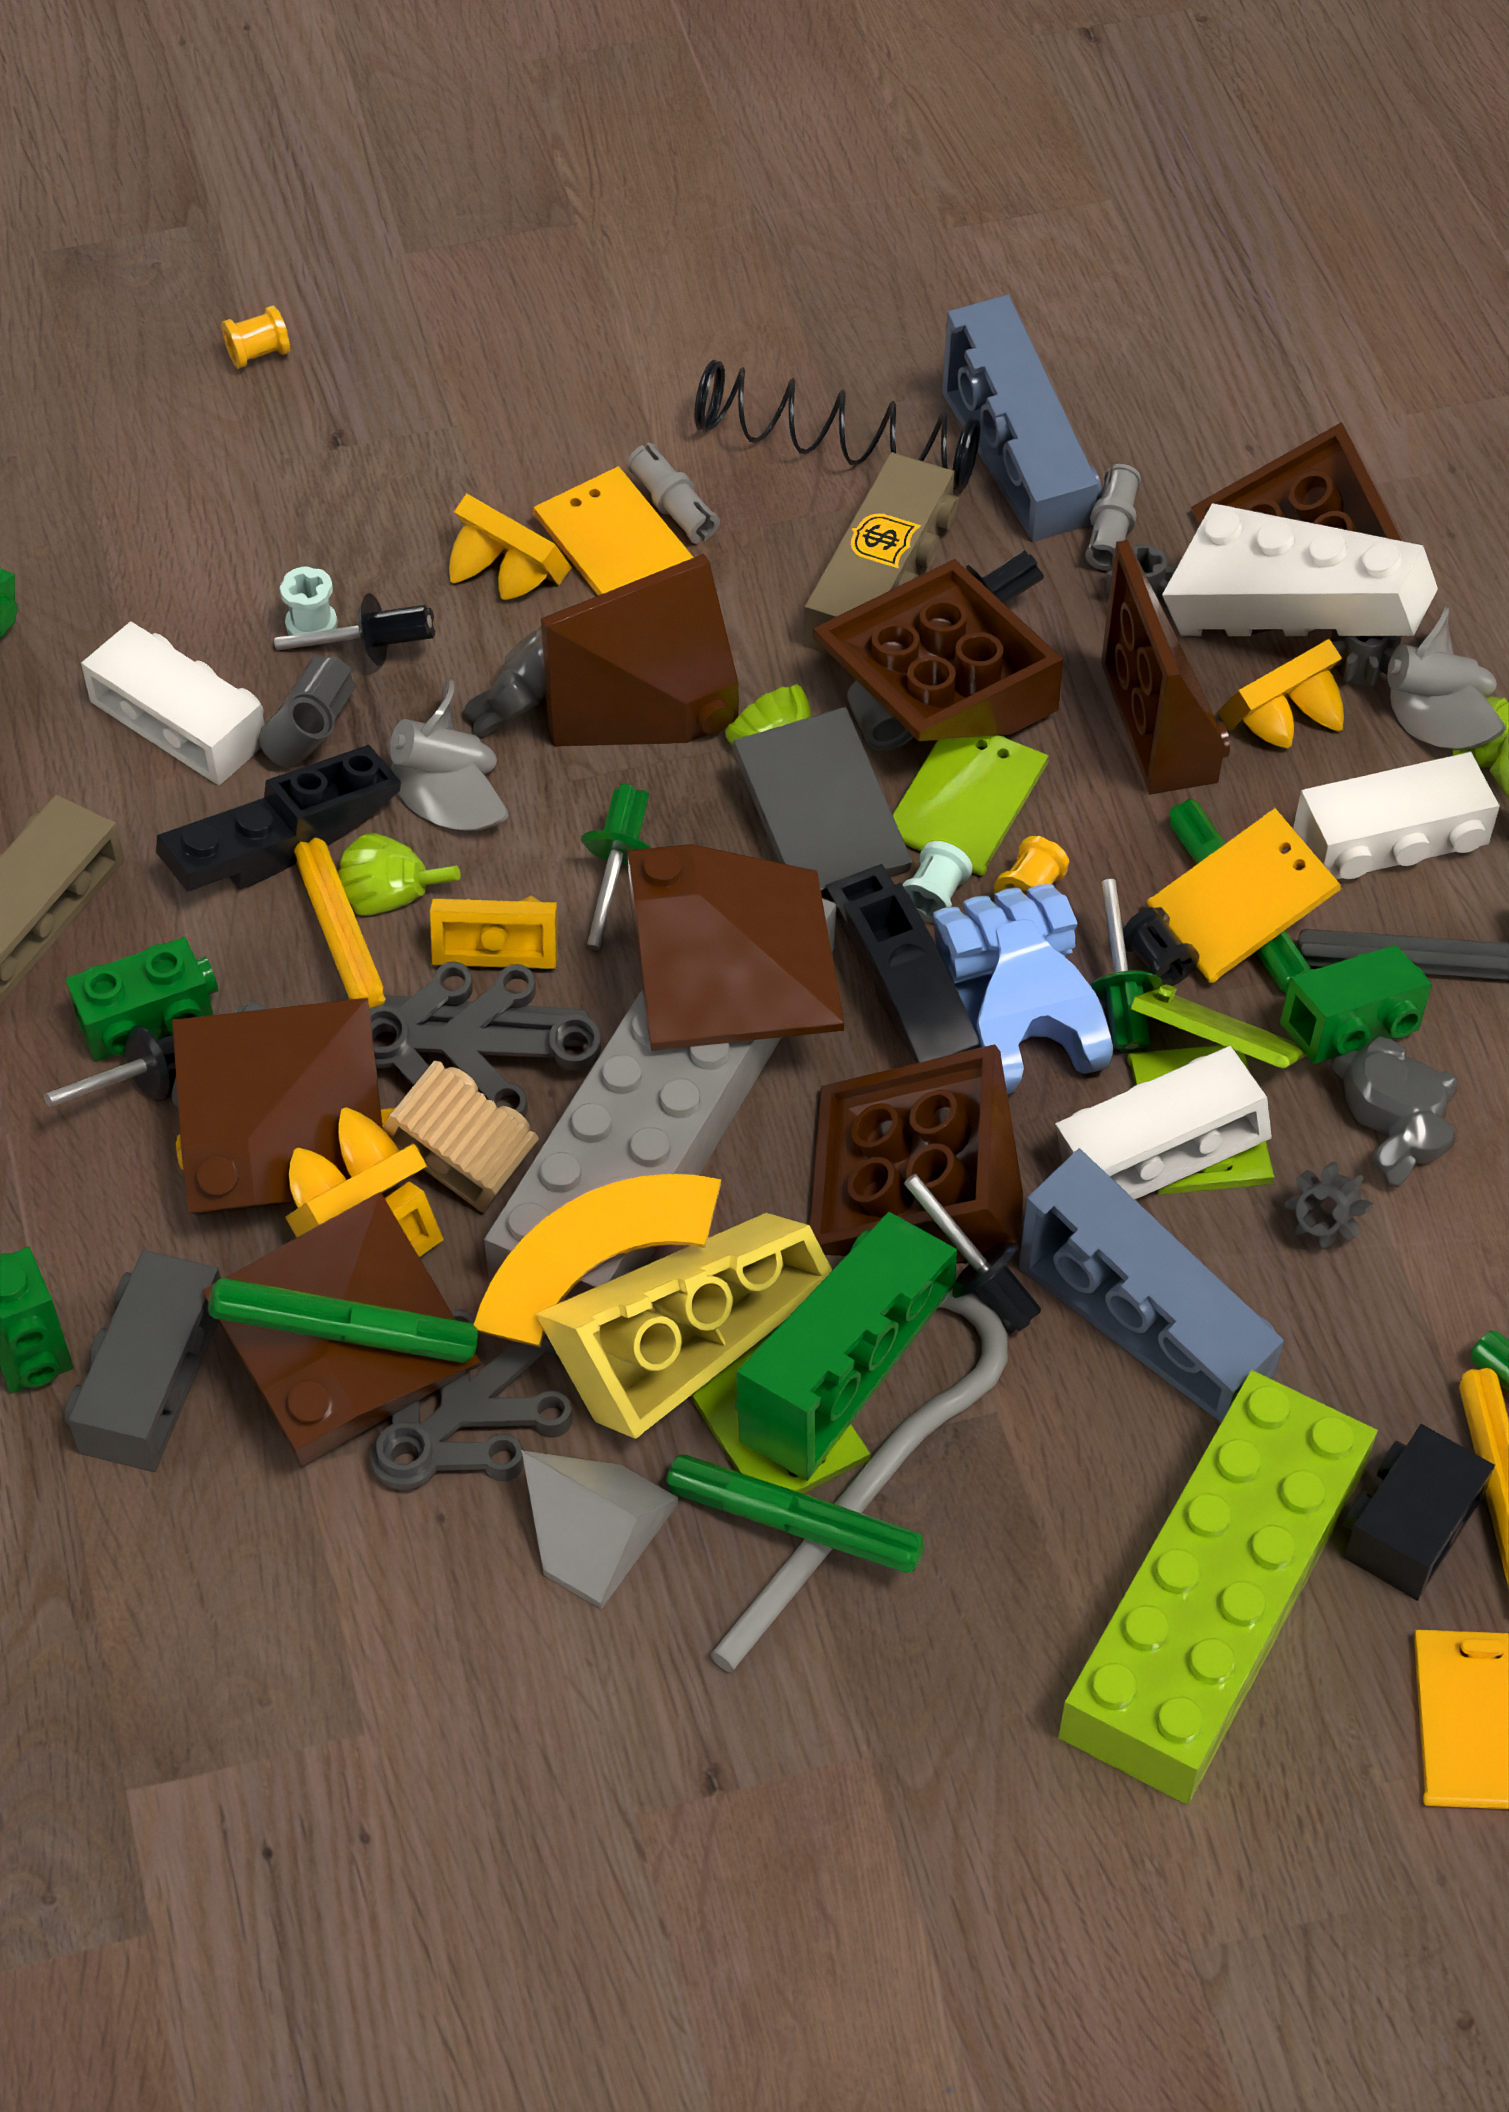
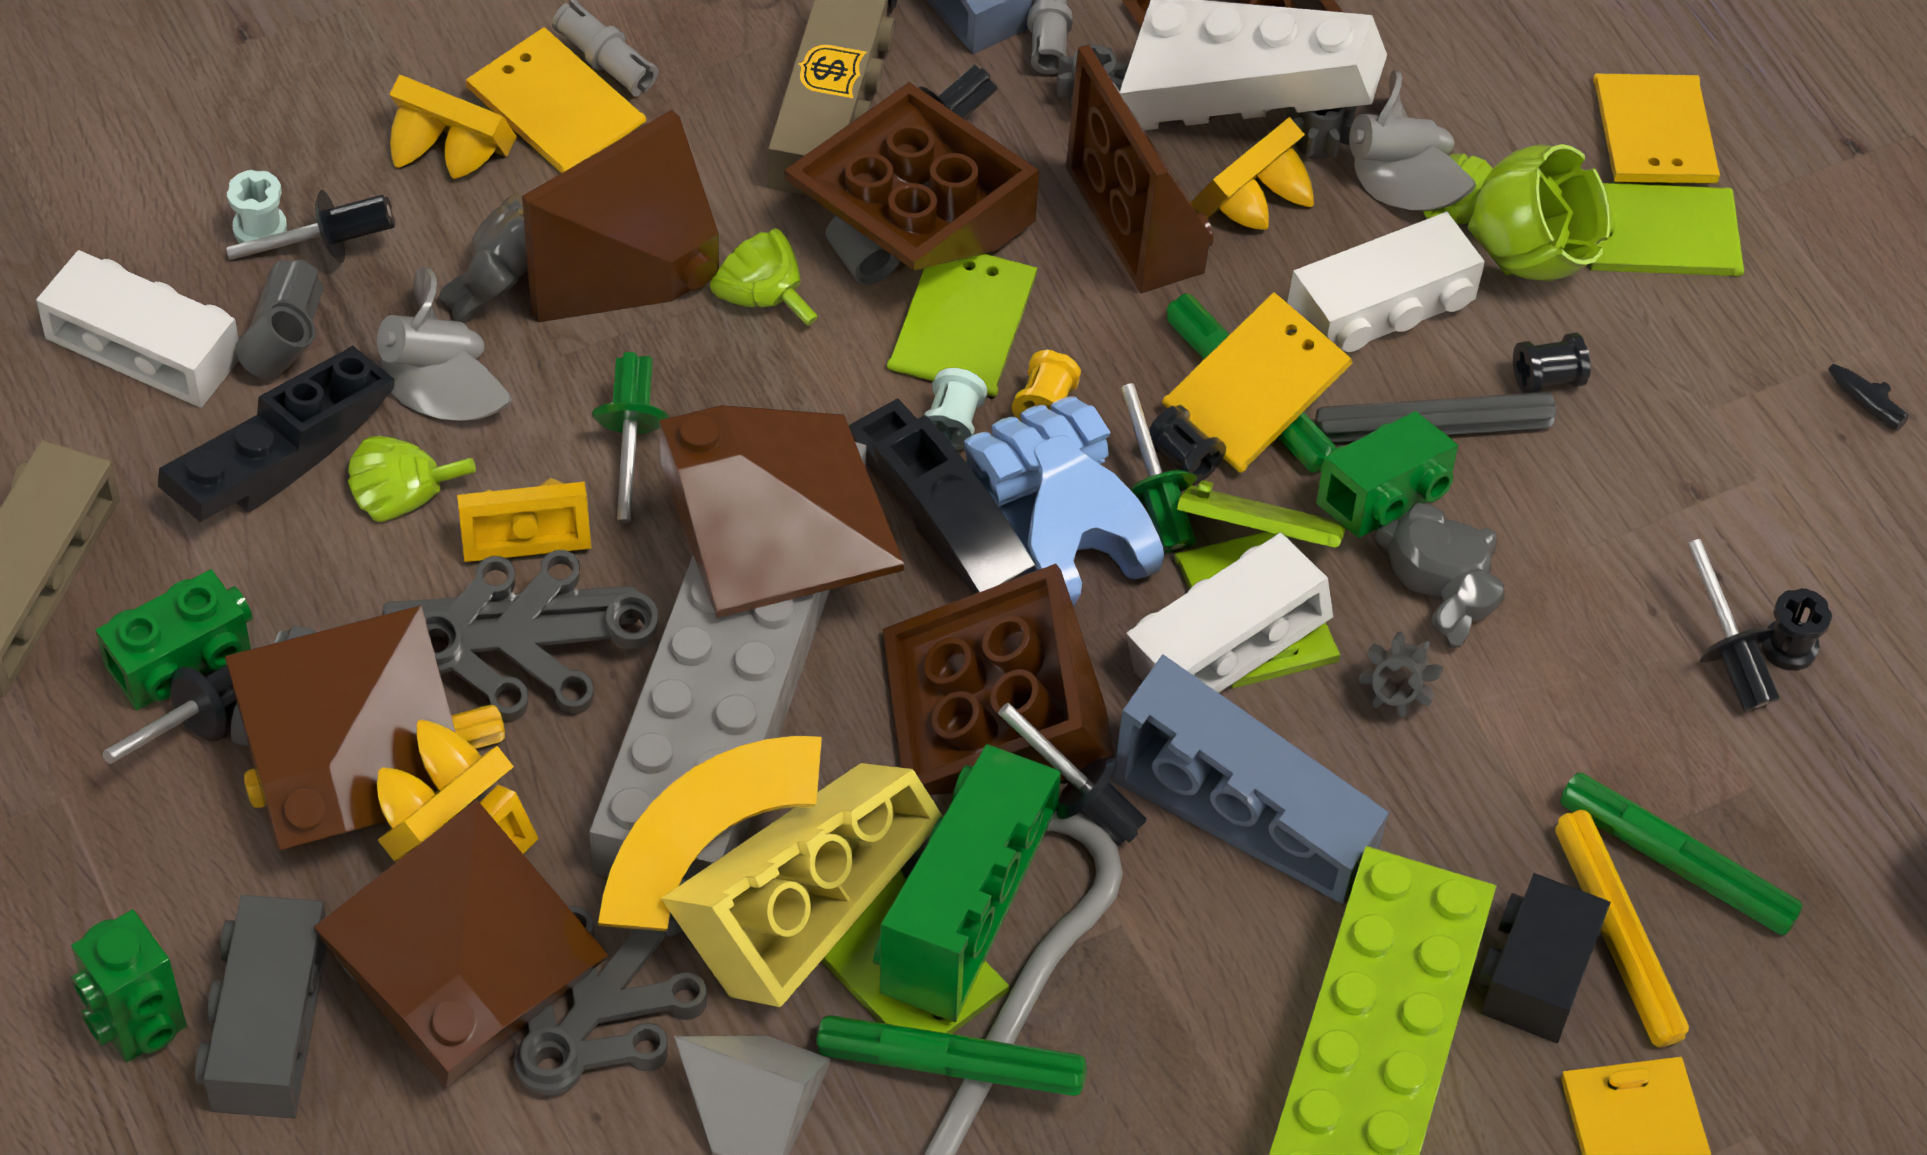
camera: 15 degrees left, 0 degrees up
(338, 922) = (363, 532): yellow axle -> none
(342, 1320) = (471, 934): green axle -> none
(461, 1134) = (541, 730): tan brick -> none
(821, 798) = (823, 339): dark grey tile -> none

